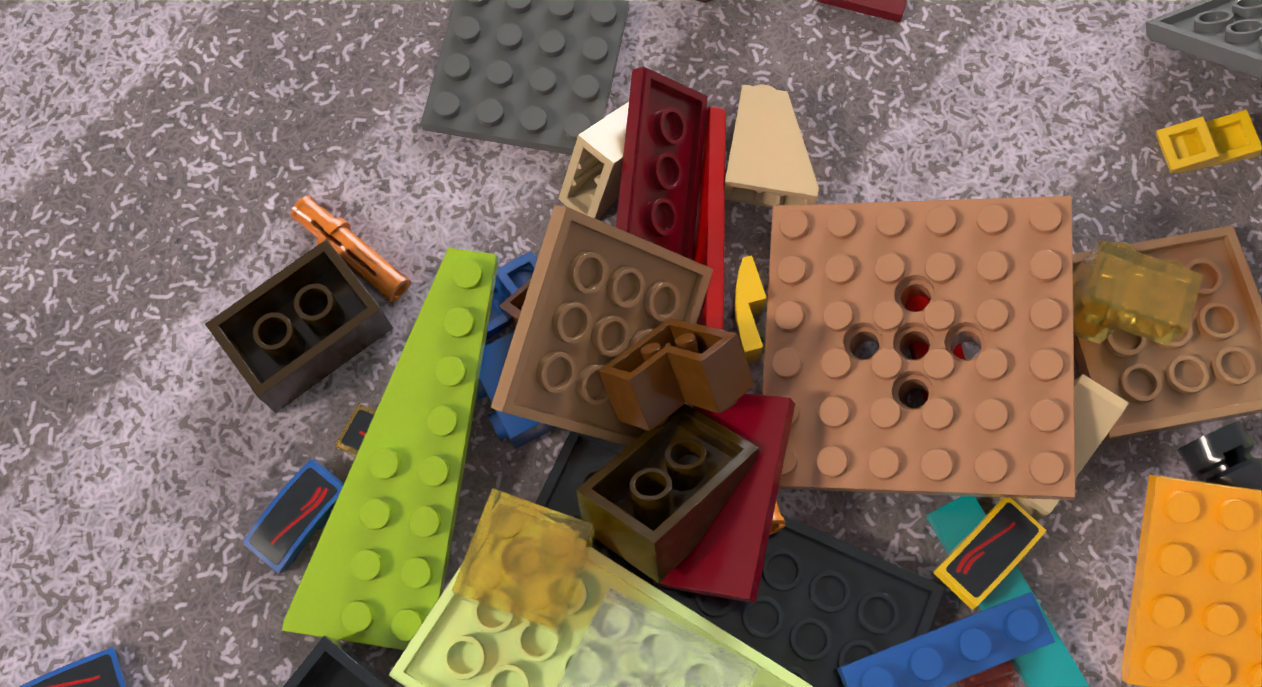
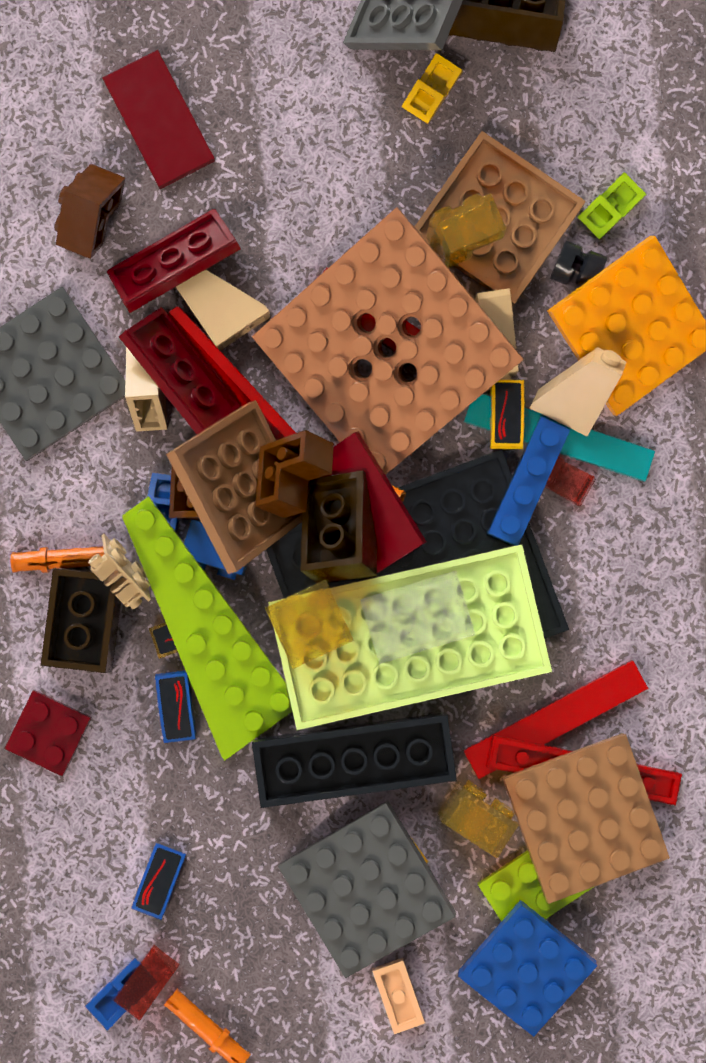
camera: 45 degrees left, 15 degrees up
(144, 412) = (48, 733): none -> dark red plate
(399, 286) = (113, 566): none -> tan hinge
(748, 301) = (283, 396): yellow slope -> none
(764, 66) = (173, 260): none -> dark red tile
(1113, 609) = (581, 390): none -> tan slope

